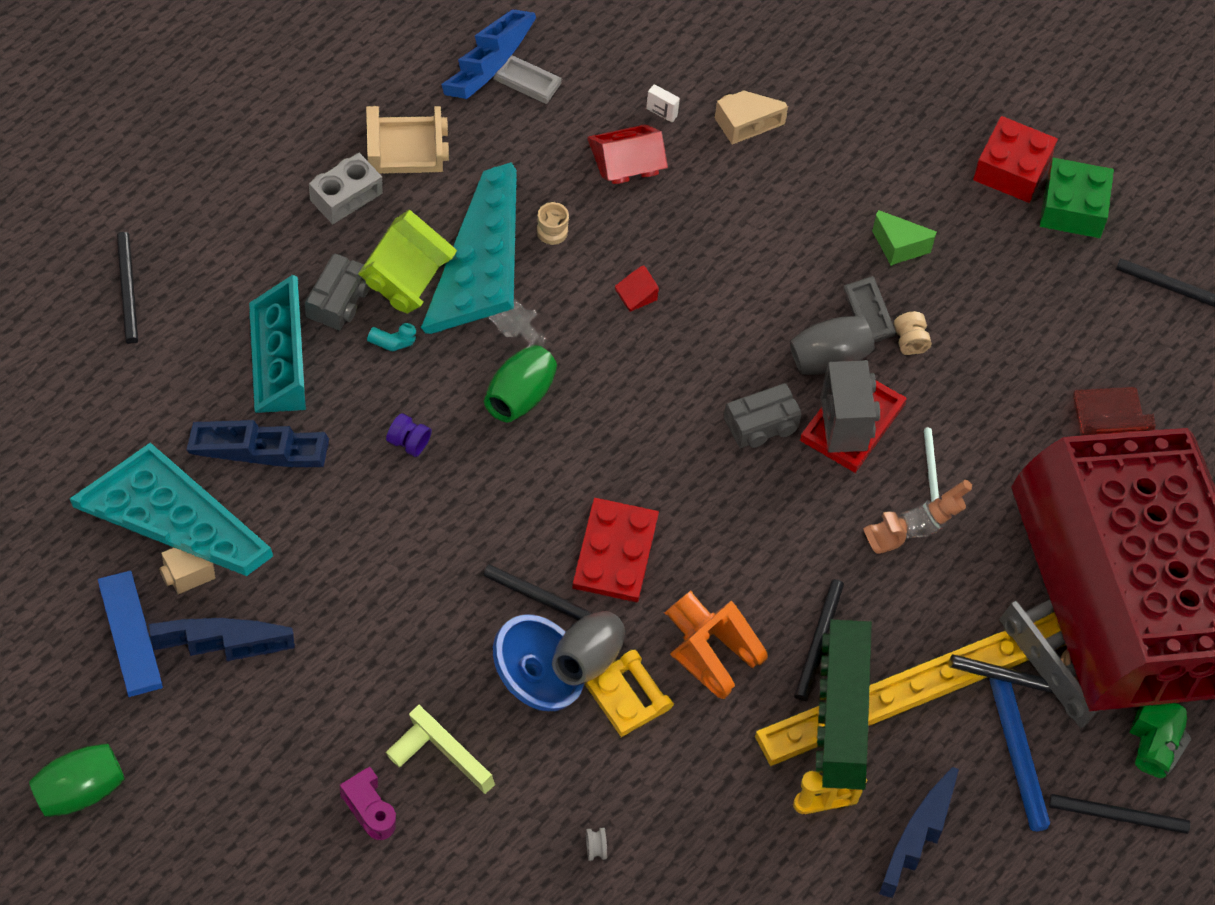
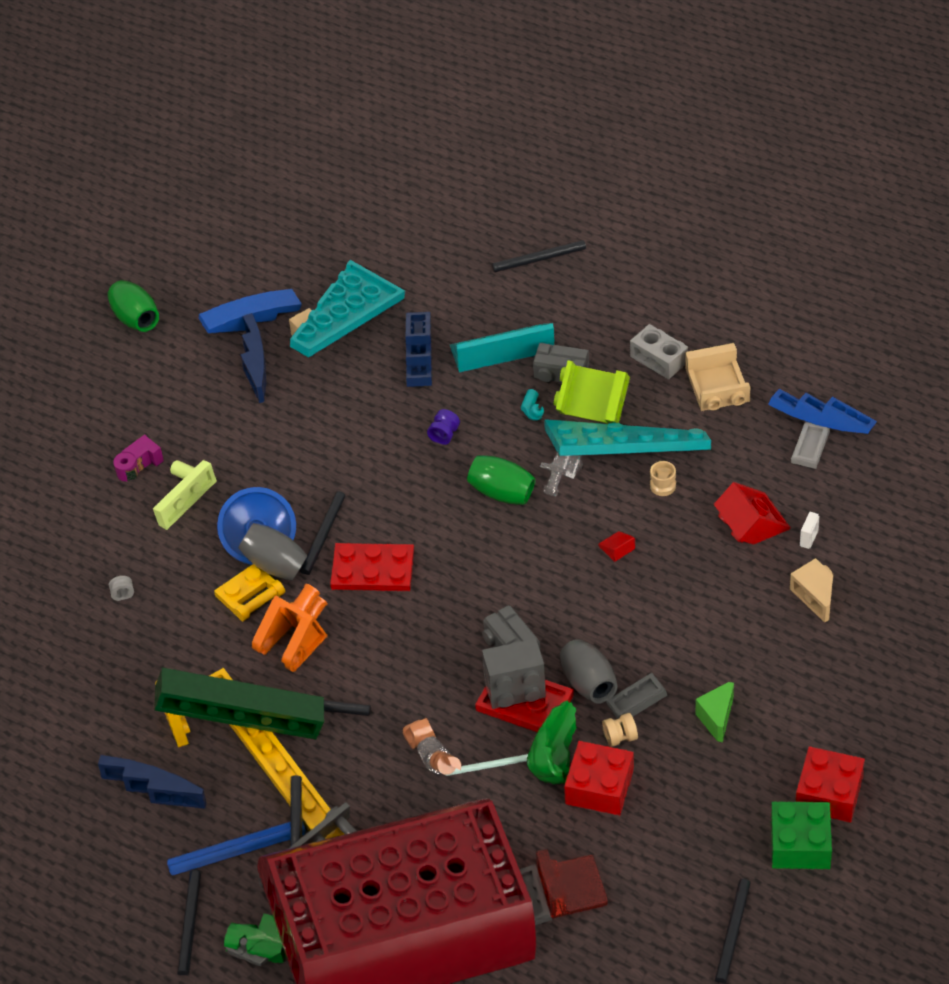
camera: 90 degrees right, 10 degrees down
(943, 407) = (549, 752): none -> green hair
(979, 362) = (599, 778): none -> red brick

